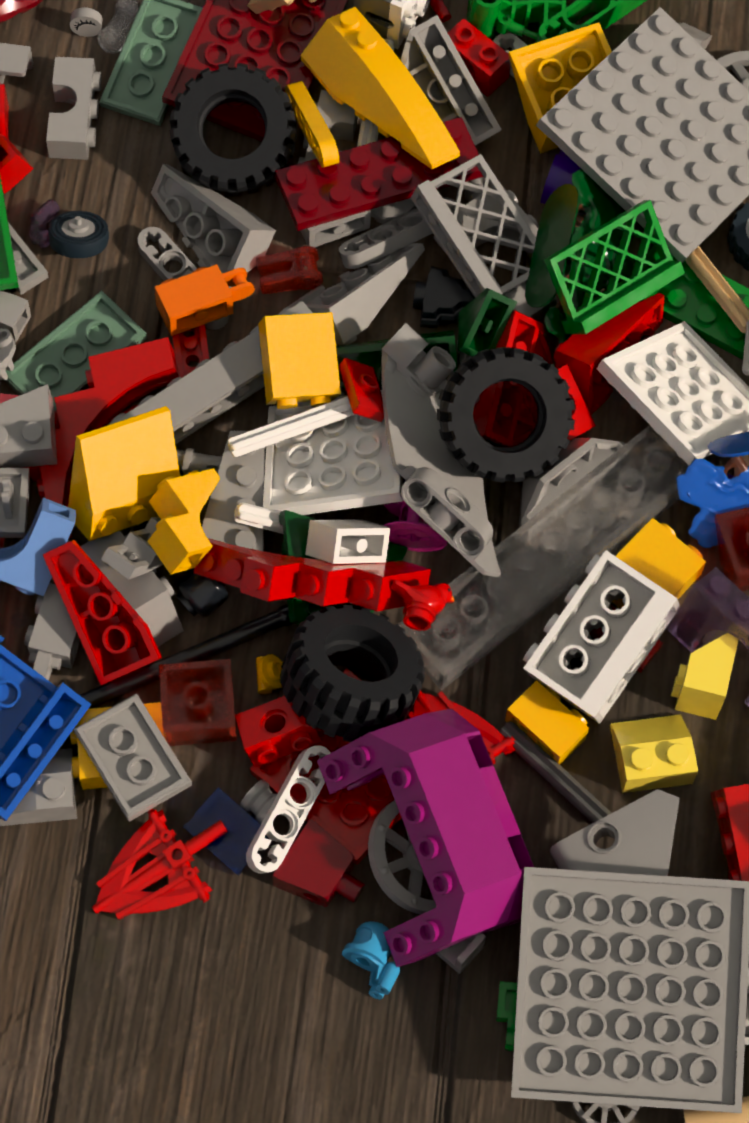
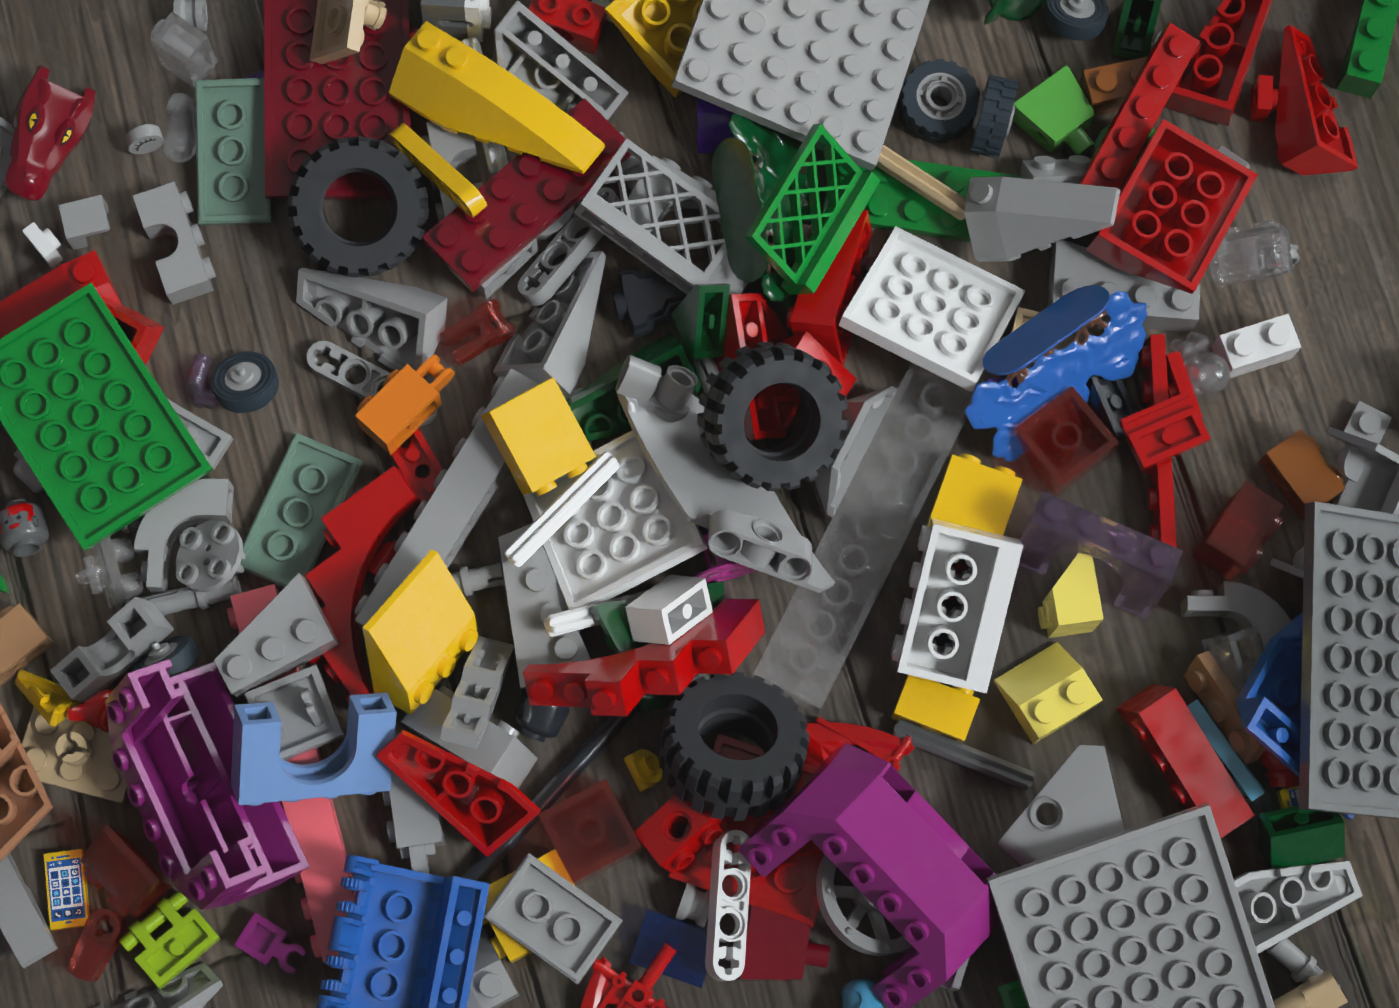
camera: 25 degrees left, 10 degrees up
(179, 534) = (490, 646): yellow arch -> none
(362, 389) = (614, 441): red plate -> none
(422, 603) = (772, 645): red animal -> none

